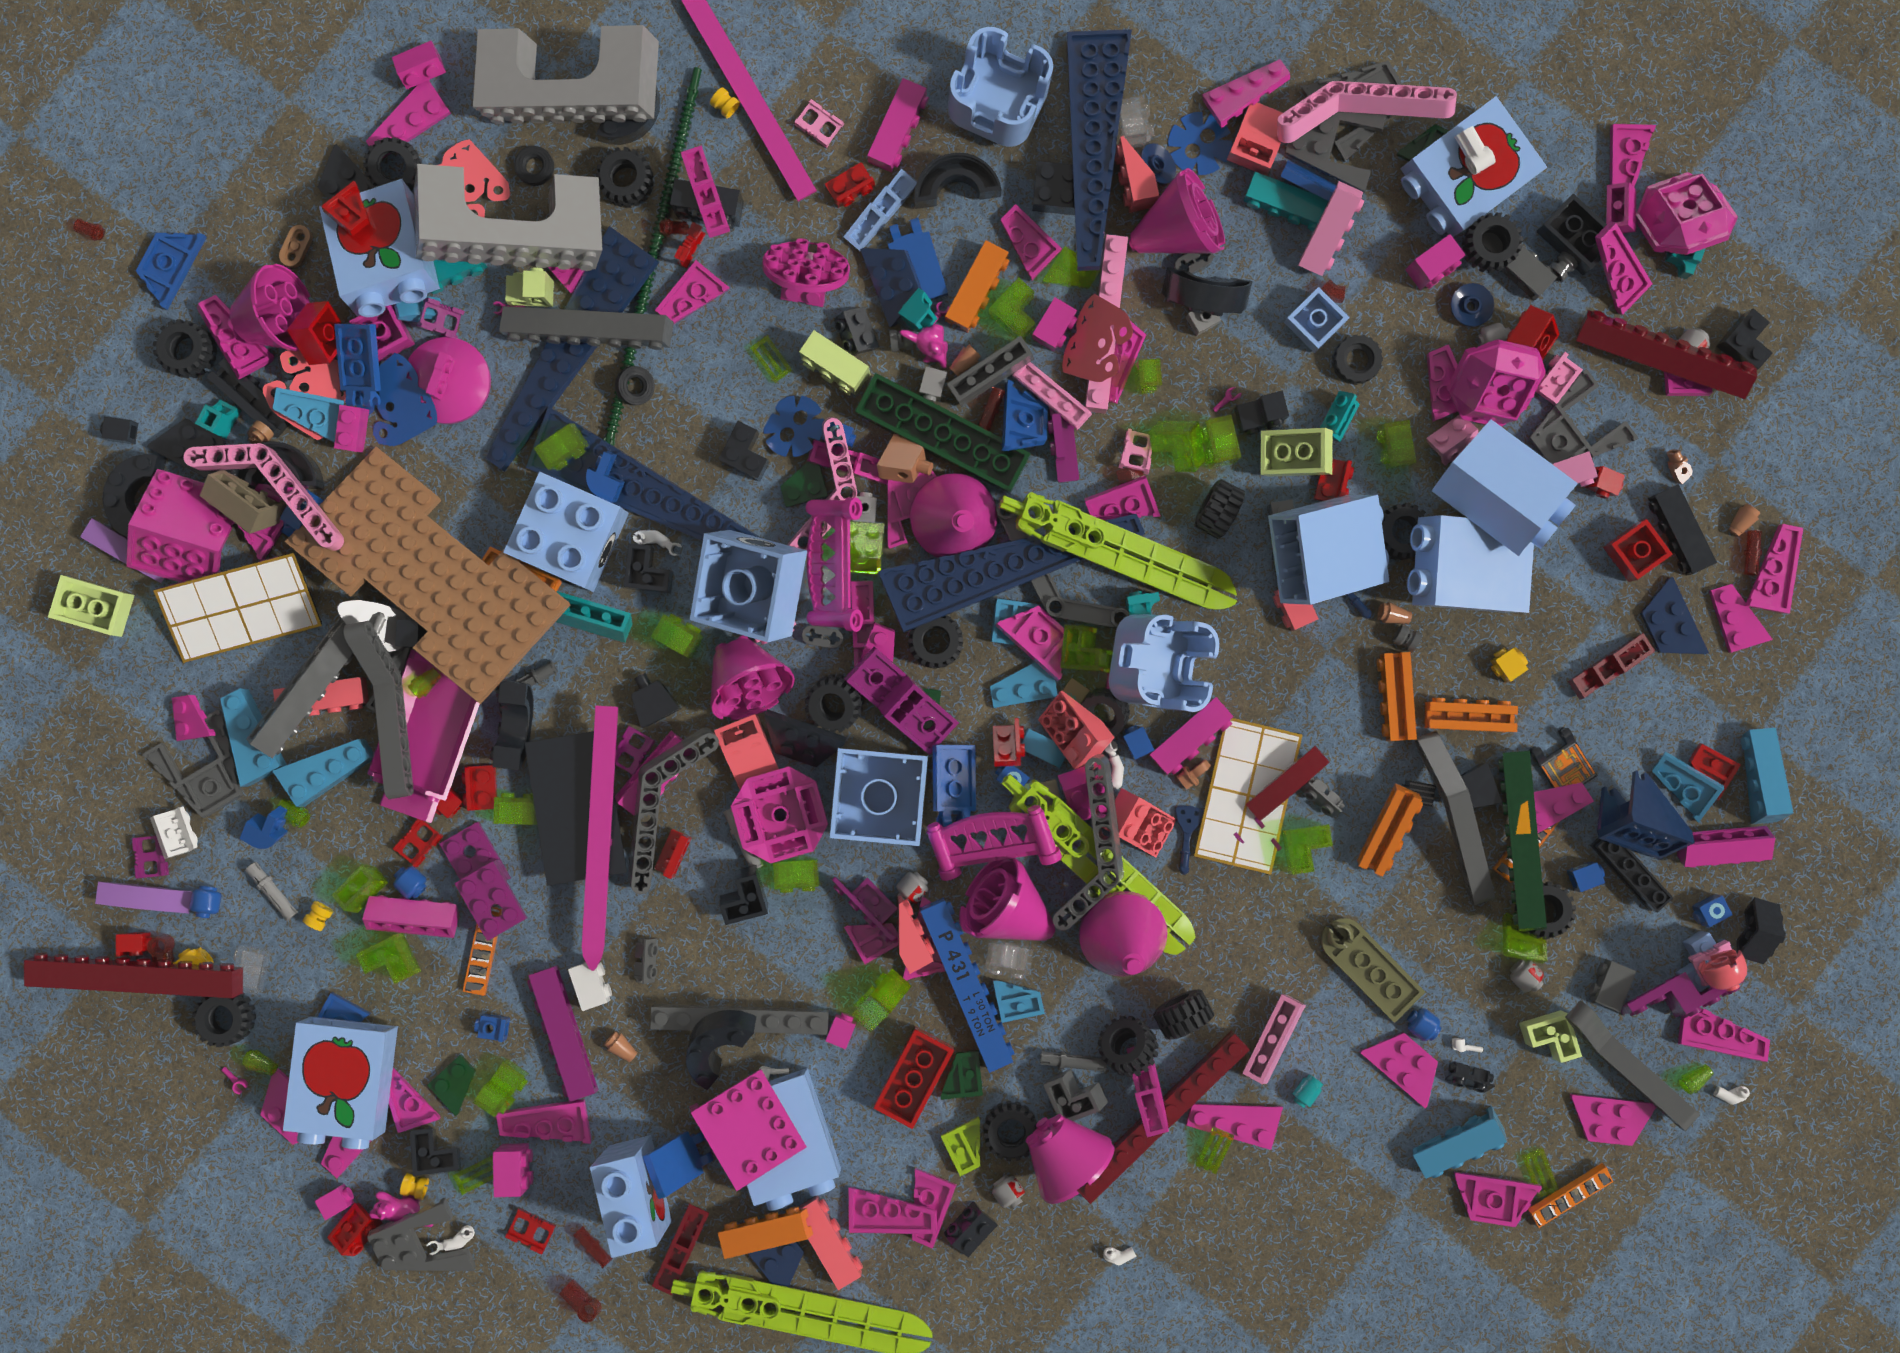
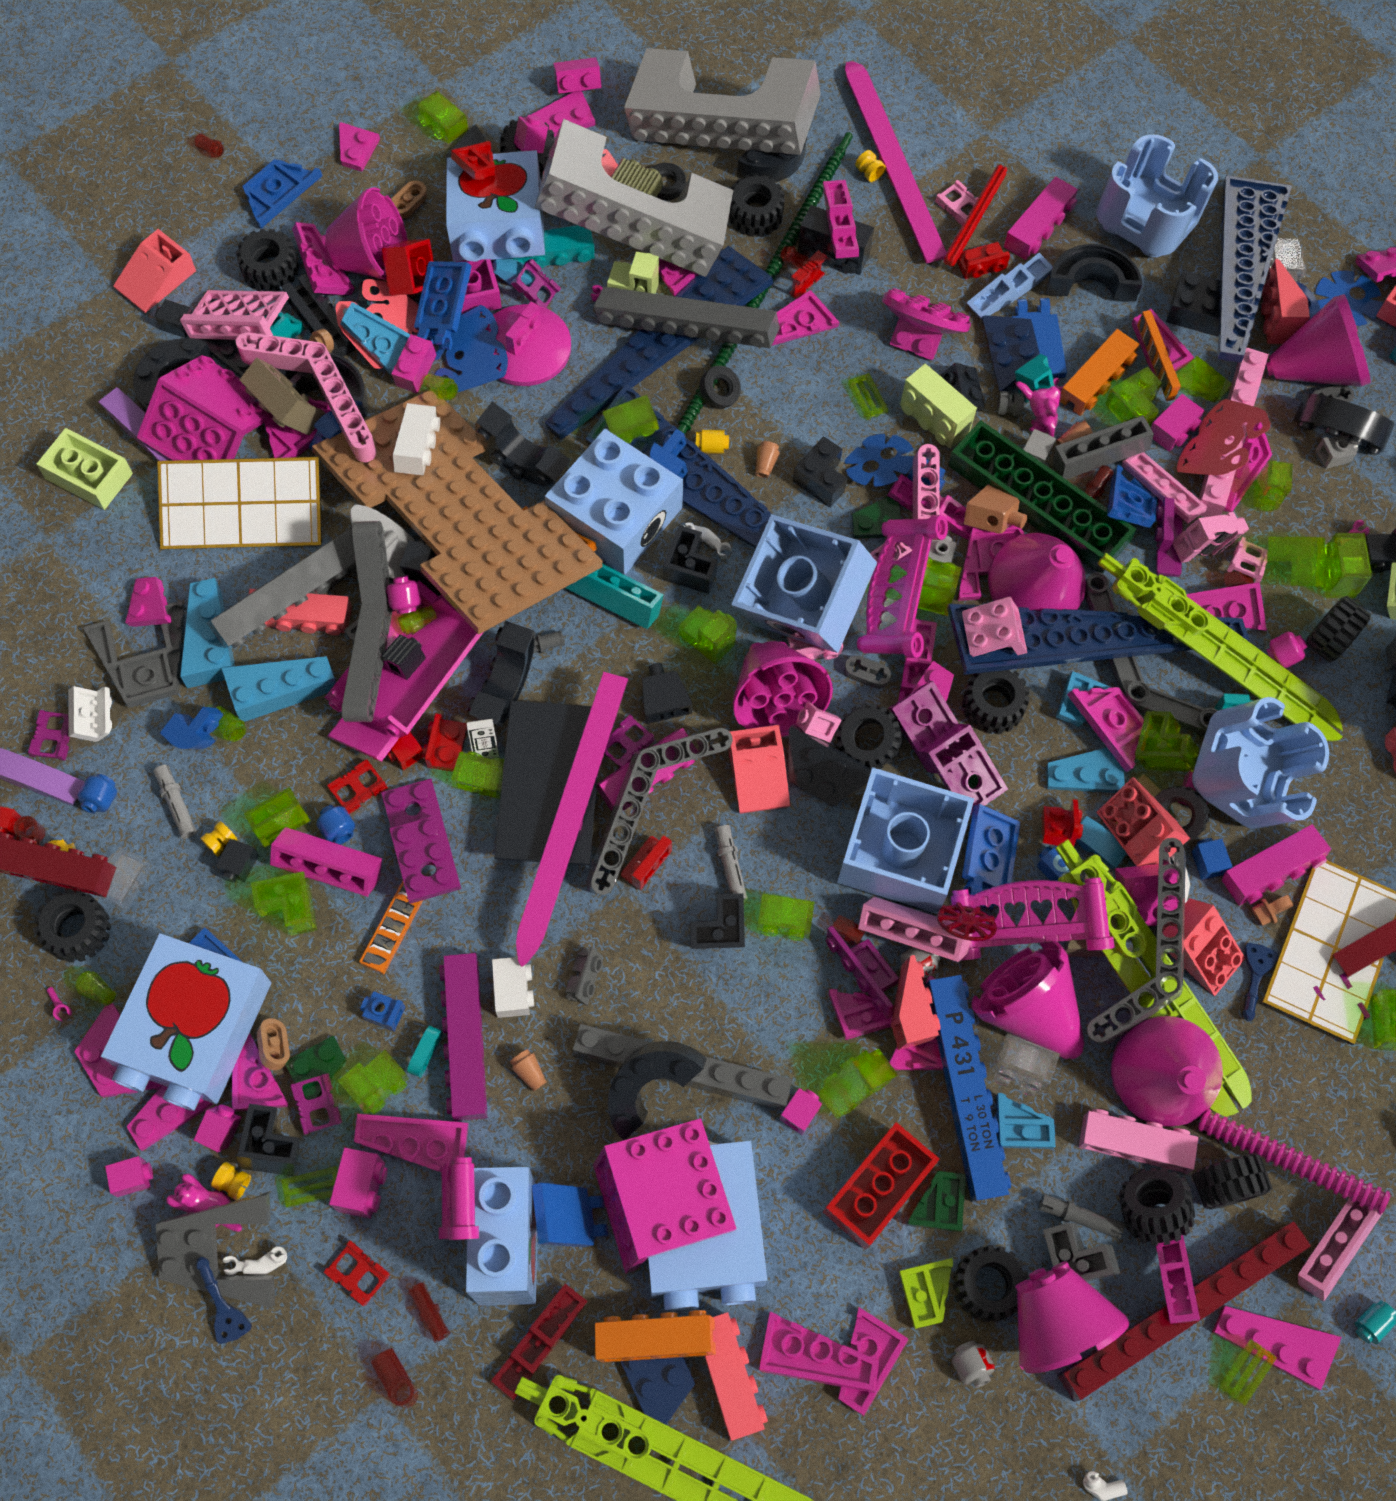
camera: 10 degrees right, 20 degrees down
(84, 386) = (154, 271): none -> coral slope
(172, 433) = (222, 326): none -> bright pink fence
(228, 195) = (356, 146): none -> dark pink wing
(301, 144) = (442, 117): none -> clear neon green brick
(338, 932) = (236, 861): none -> black brick
(352, 1231) = (136, 1220): red bracket -> none
(374, 518) = (416, 439): none -> white brick
(382, 445) = (443, 387): none -> clear neon green cone
(391, 162) = (531, 134): none -> dark pink brick
(391, 1150) = (217, 1128): none -> dark pink brick
(406, 669) = (403, 595): none -> dark pink head
(414, 1076) = (275, 1049): none -> medium nougat plate
(423, 723) = (403, 656): none -> black brick
(438, 1281) = (224, 1309): none -> dark blue piece
(468, 1109) = (324, 1101): none -> magenta piece
(469, 498) = (514, 451): none -> black brick
(506, 180) = (638, 177): none -> olive brick
(510, 782) = (483, 738): none -> tile
(535, 1051) = (424, 1051): none -> teal beam
(596, 1216) = (458, 1200): none -> dark pink piece
(639, 443) = (712, 441): none -> yellow brick
(692, 449) = (765, 458): none -> nougat cone
(756, 819) = (789, 817): dark pink piece -> none
(787, 705) = (817, 722): none -> bright pink bracket
(834, 139) = (975, 215): none -> red axle
(849, 873) = (848, 930): none -> clear red piece
(902, 866) = (911, 928): none -> bright pink brick
(920, 588) = (994, 627): none -> bright pink bracket
(941, 858) = (966, 922): none -> dark red wheel
(970, 1229) = (915, 1404): black bracket -> none
(1028, 260) = (1158, 355): none -> orange tile
(1101, 439) = (1209, 536): none -> bright pink hips
(1108, 993) = (1138, 1141): none -> bright pink brick
(1179, 534) = (1287, 649): none -> dark pink head
(1229, 987) = (1295, 1161): none -> dark pink piece

